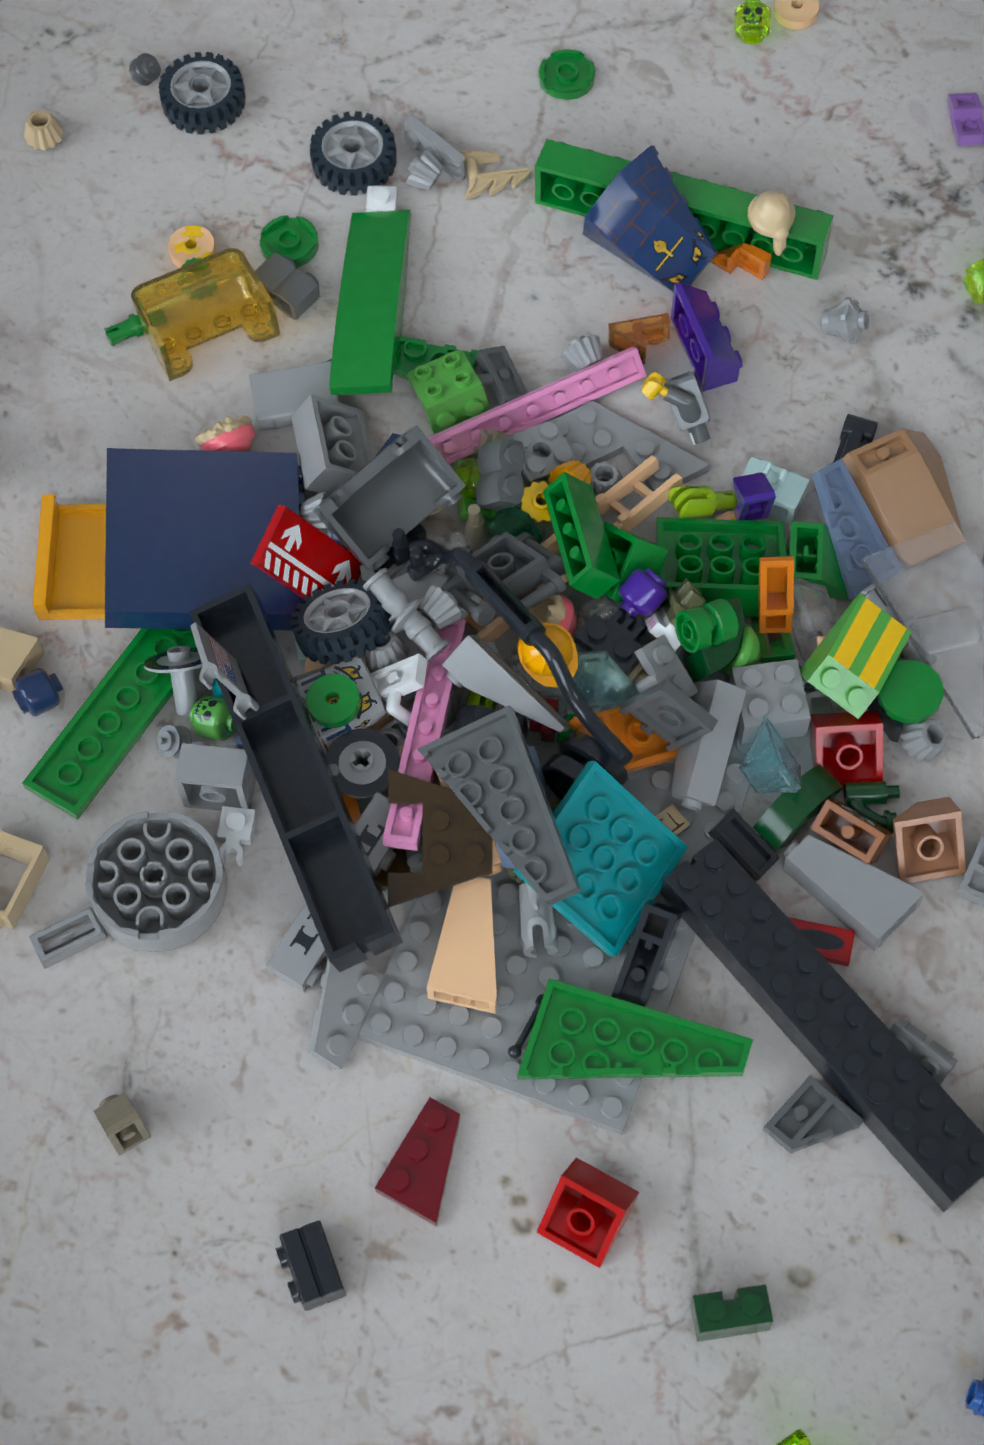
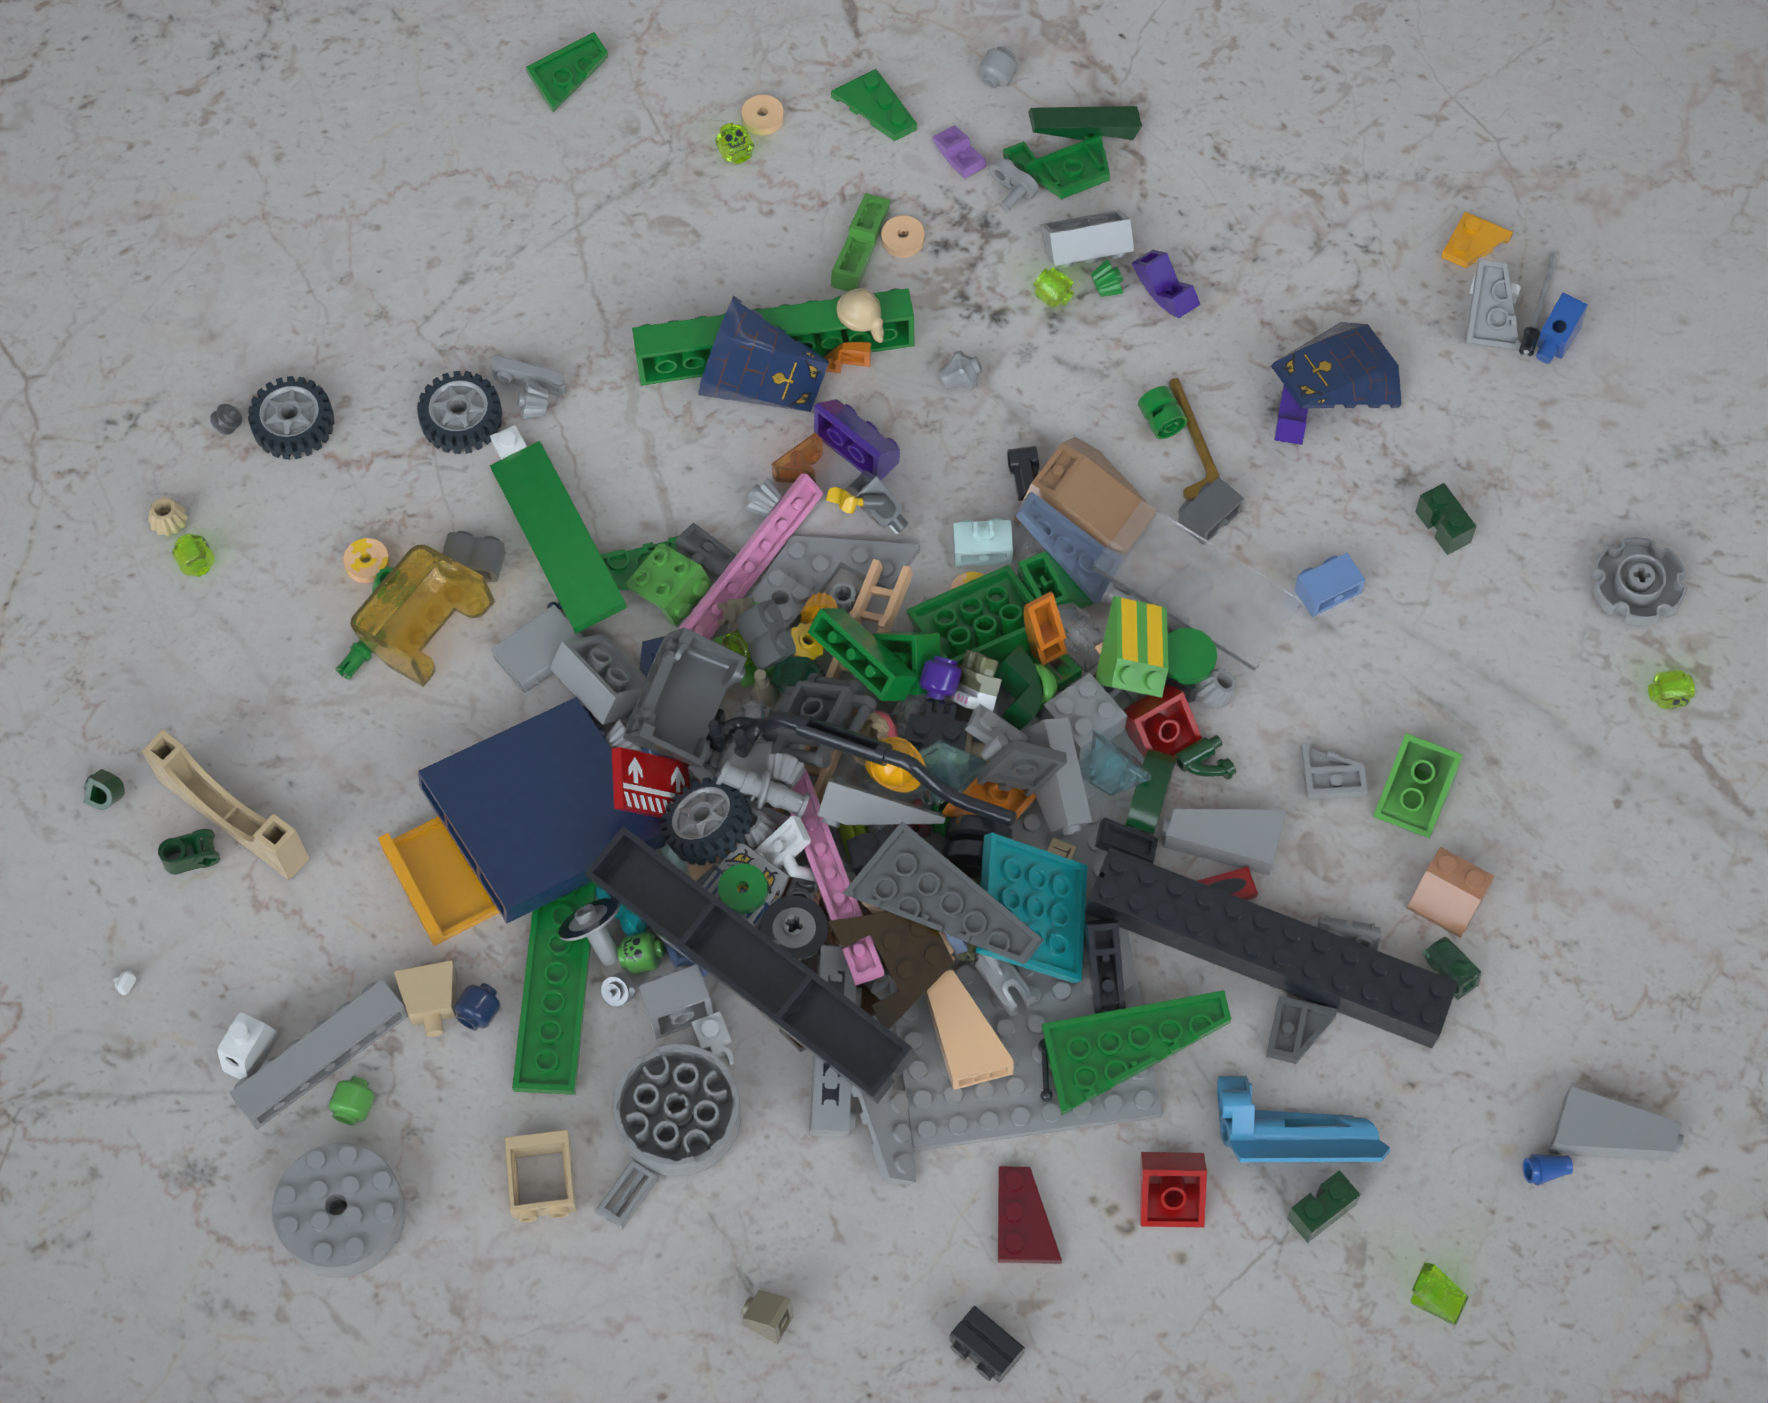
camera: 30 degrees left, 0 degrees up
(44, 174) = (193, 555): none -> clear neon green head
(224, 667) = (648, 910): light grey flag -> none
(228, 436) = (507, 712): coral hair -> none
(290, 238) = (448, 513): green tile -> none
(498, 179) = (584, 388): tan piece -> none
(566, 74) = (601, 259): green tile -> none
(700, 501) = (933, 579): lime arm -> none
(706, 625) = (1011, 680): green wheel -> none
(726, 1216) = (1277, 1135): none -> dark azure panel
(754, 497) = (977, 554): dark purple slope -> none
(825, 158) = (860, 242): none -> bright green slope
(851, 831) = (1203, 789): dark orange brick -> none
(869, 163) = (905, 246): none -> light nougat piece
(913, 43) = (878, 103): none -> green wing
(929, 841) = (1266, 766): nougat slope -> none

